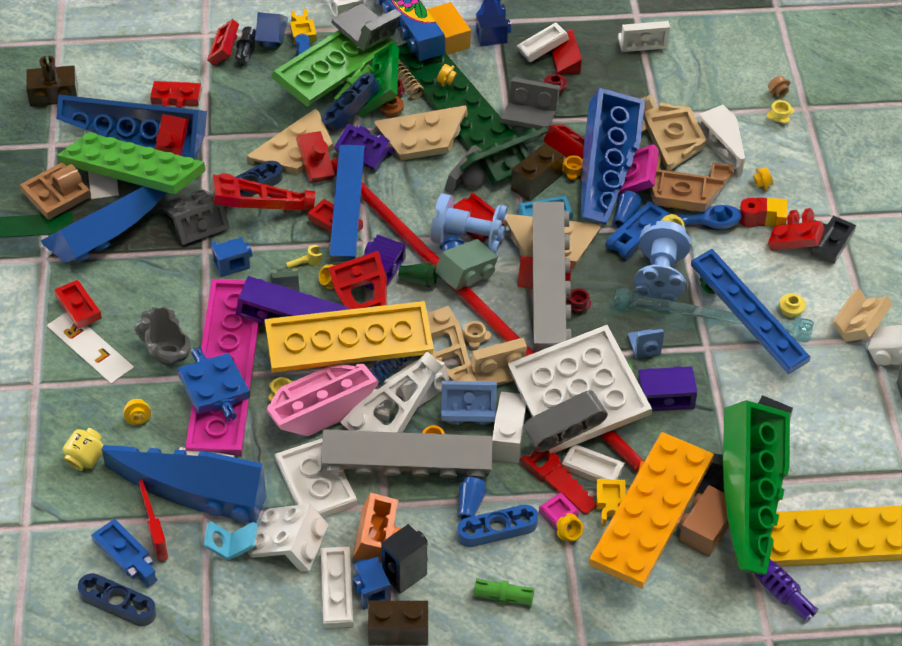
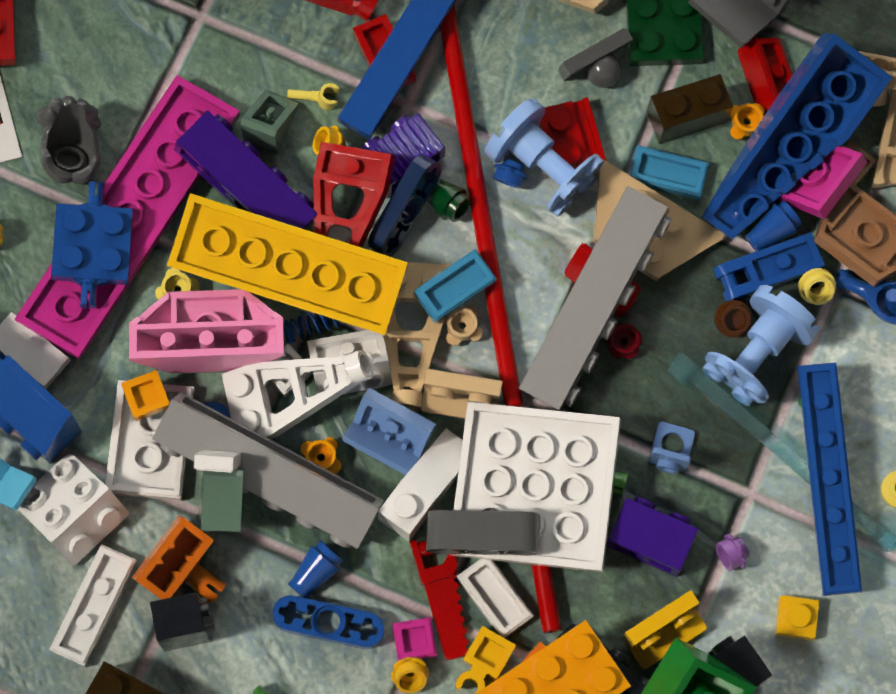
camera: 25 degrees right, 25 degrees up
(231, 256) = (221, 48): blue brick -> none
(300, 448) = (145, 395): none -> light orange plate
(371, 582) = (131, 625): blue brick -> none
(374, 449) = (217, 461): none -> white tile
(389, 475) = (221, 501): none -> sand green slope
(400, 276) = (404, 205): none -> dark blue beam
(458, 311) = (454, 286): none -> dark azure tile
(466, 264) = (507, 218): sand green brick -> none
(500, 159) = (653, 70): dark green bracket -> none
(634, 261) = (733, 318): none -> reddish brown plate
(709, 427) = (655, 634): none -> yellow bracket
(719, 377) = (732, 552): none -> medium lavender plate
(782, 392) = (796, 617): none -> yellow plate

